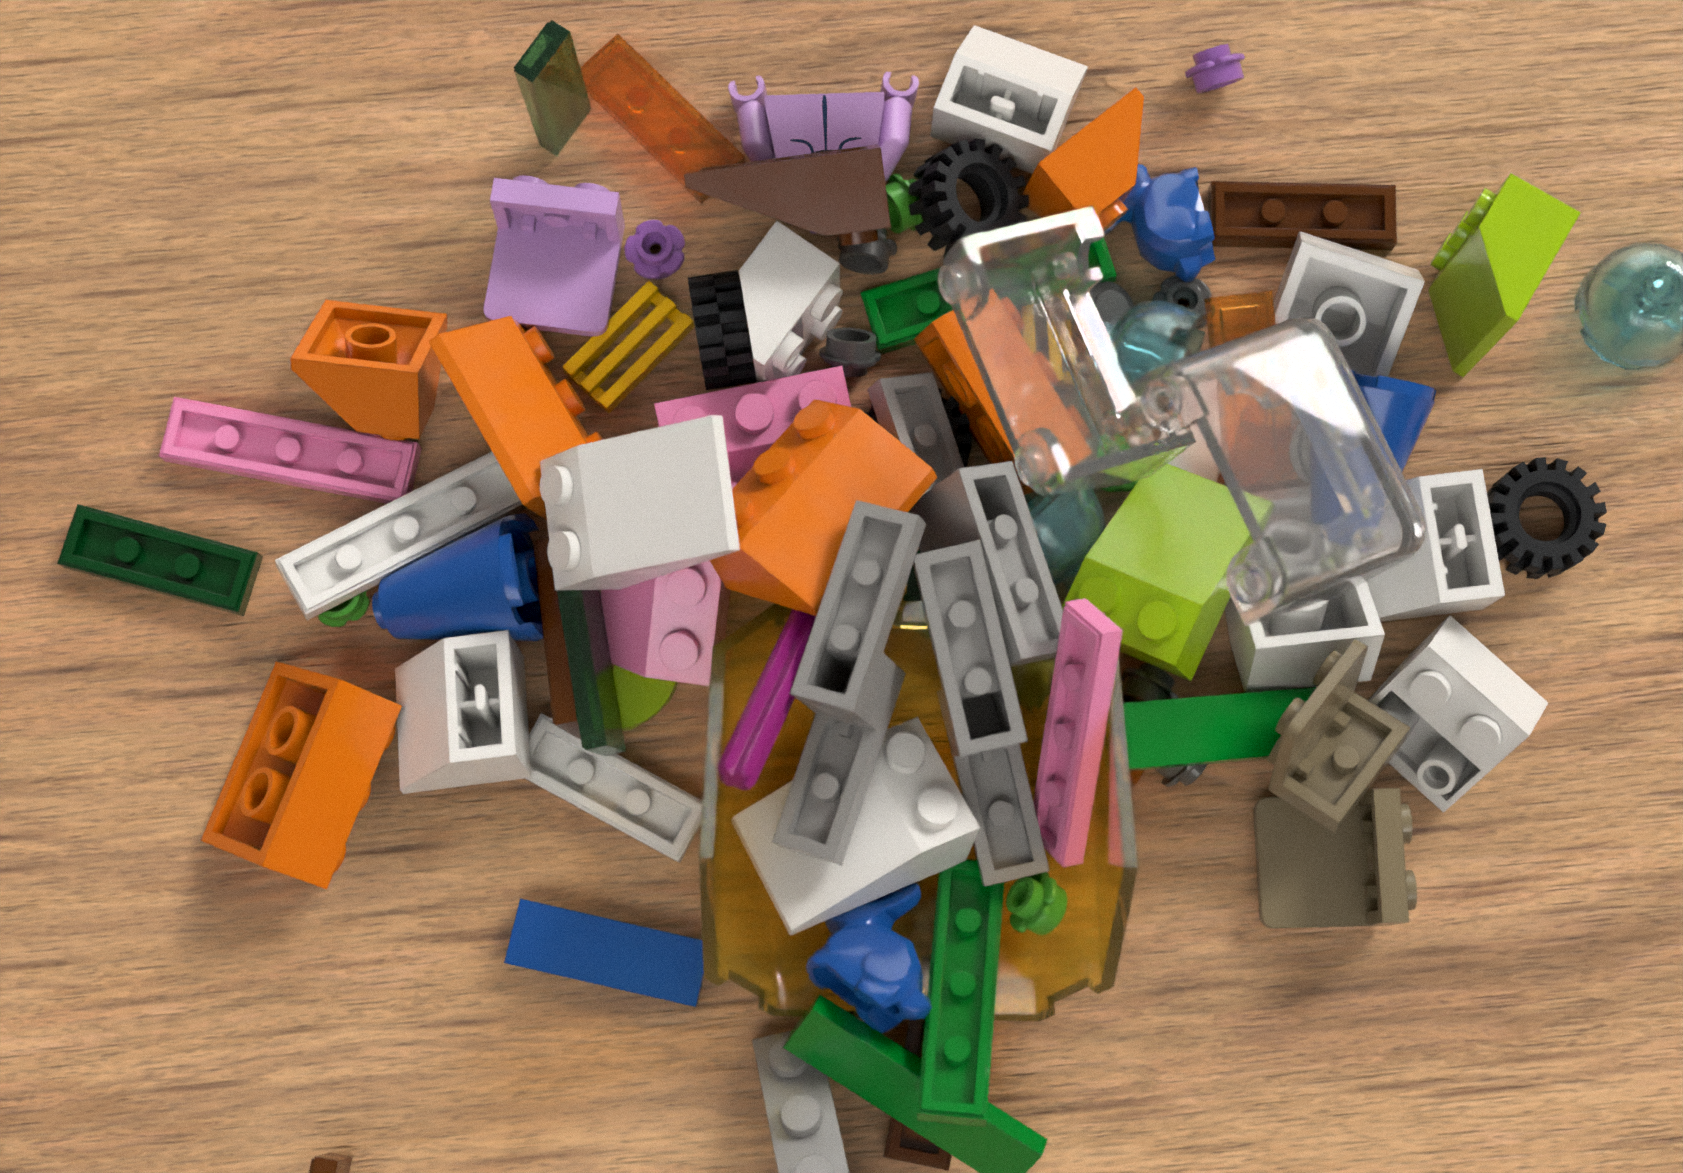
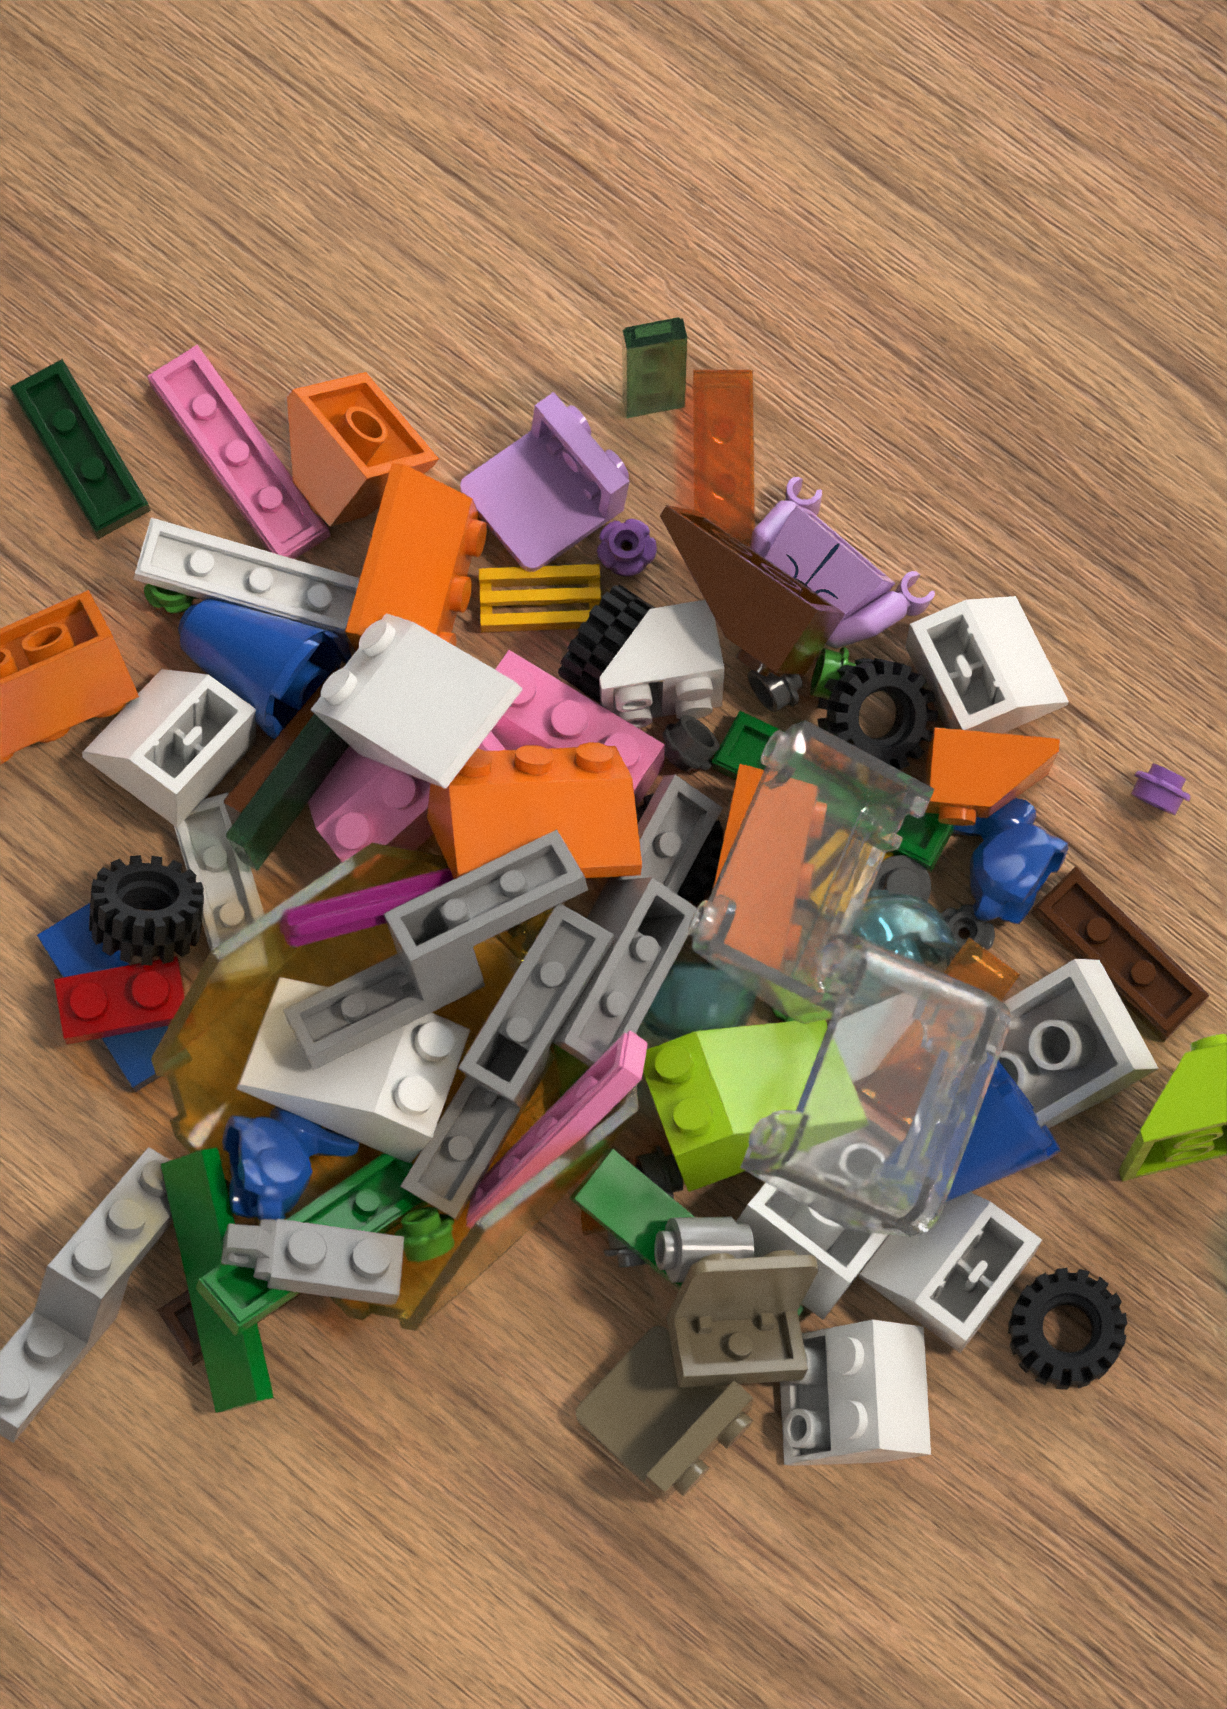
camera: 45 degrees right, 5 degrees down
(589, 885) = (142, 933): none -> black tyre
(621, 950) = (119, 1000): none -> red plate
(640, 696) = (304, 846): lime tile -> none
(989, 1004) = (318, 1259): none -> light grey hinge
(1249, 713) = (693, 1238): none -> light grey brick

